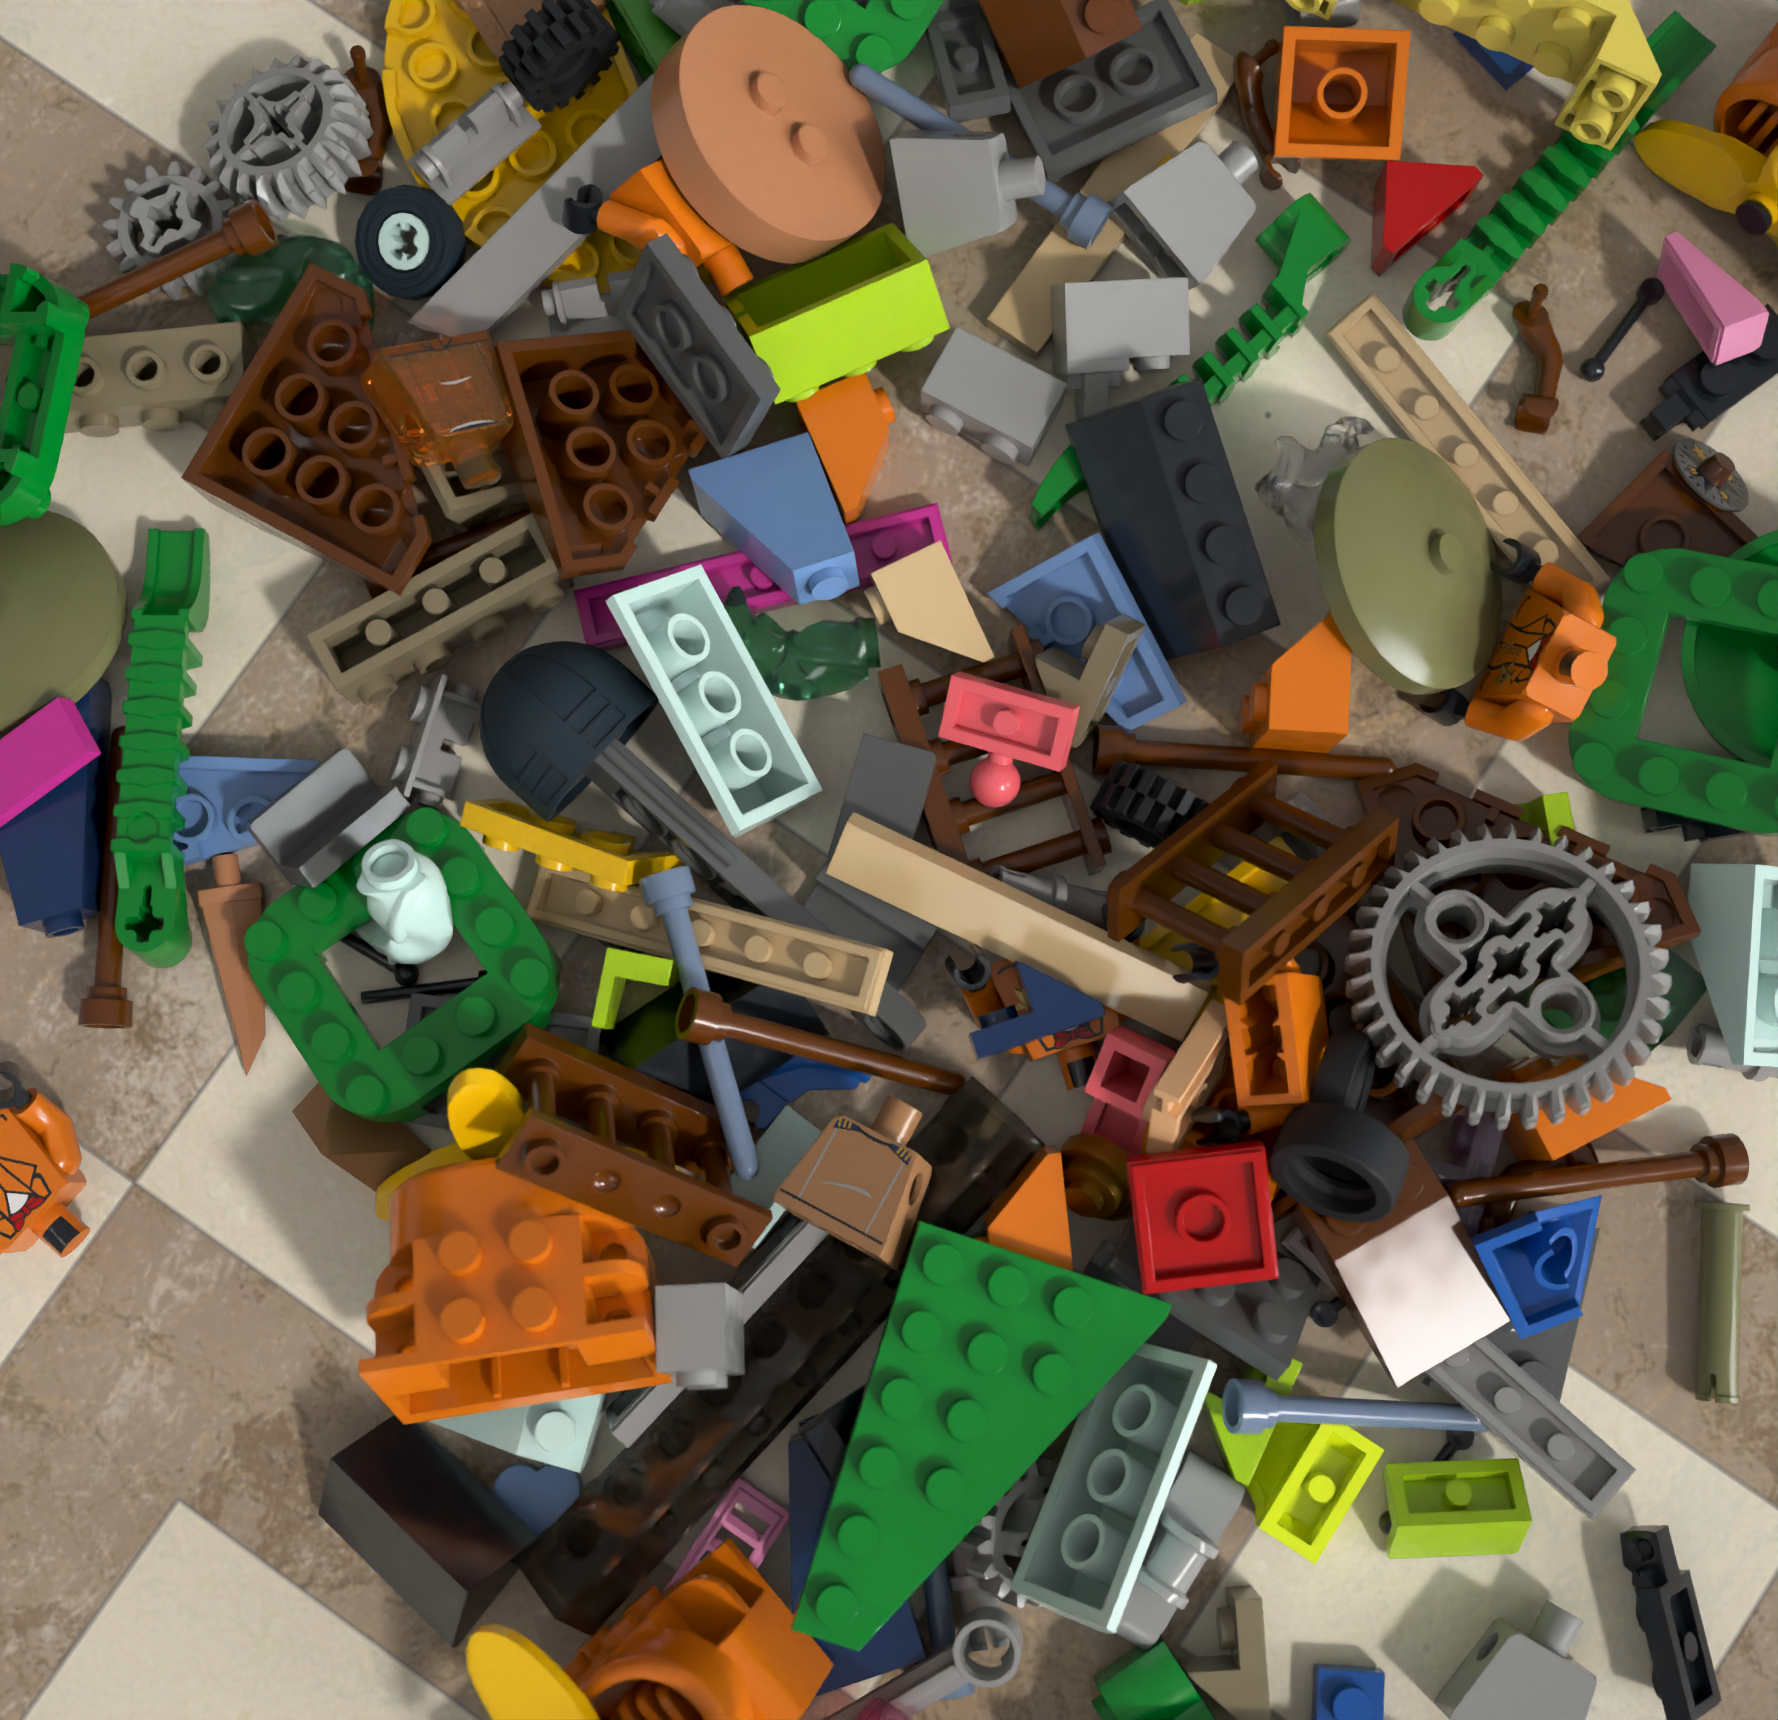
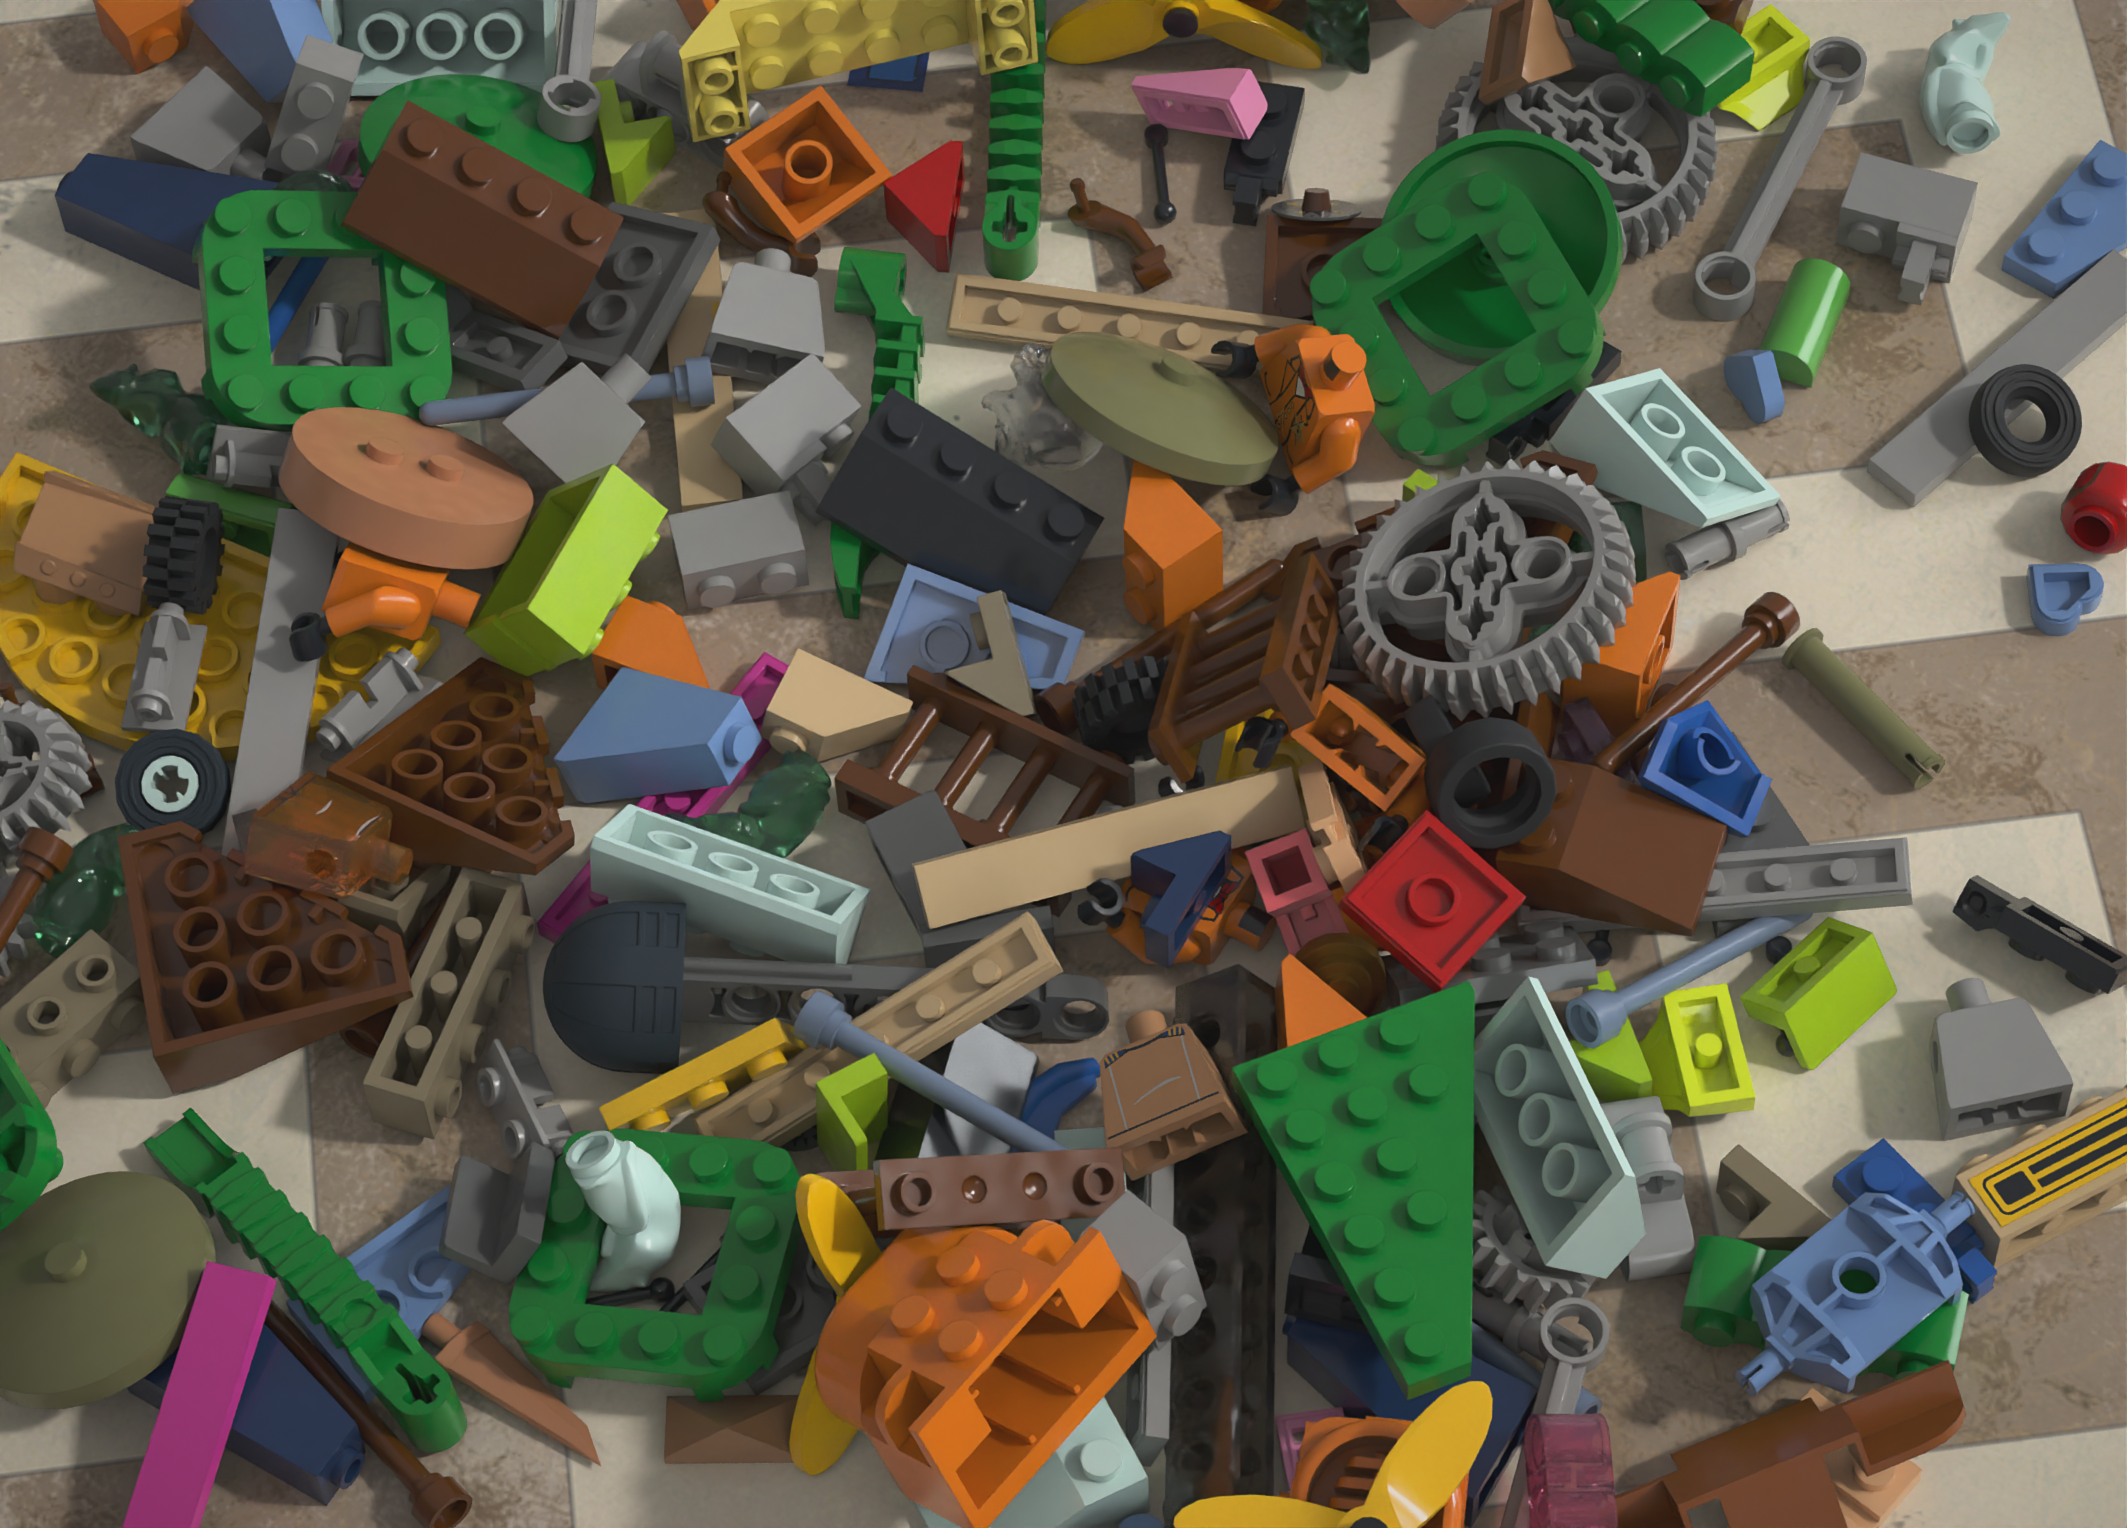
camera: 40 degrees left, 25 degrees down
(697, 347) = (488, 660): dark grey plate -> none
(706, 1018) = (939, 1068): reddish brown piece -> none
(1009, 726) = (968, 731): coral plate -> none

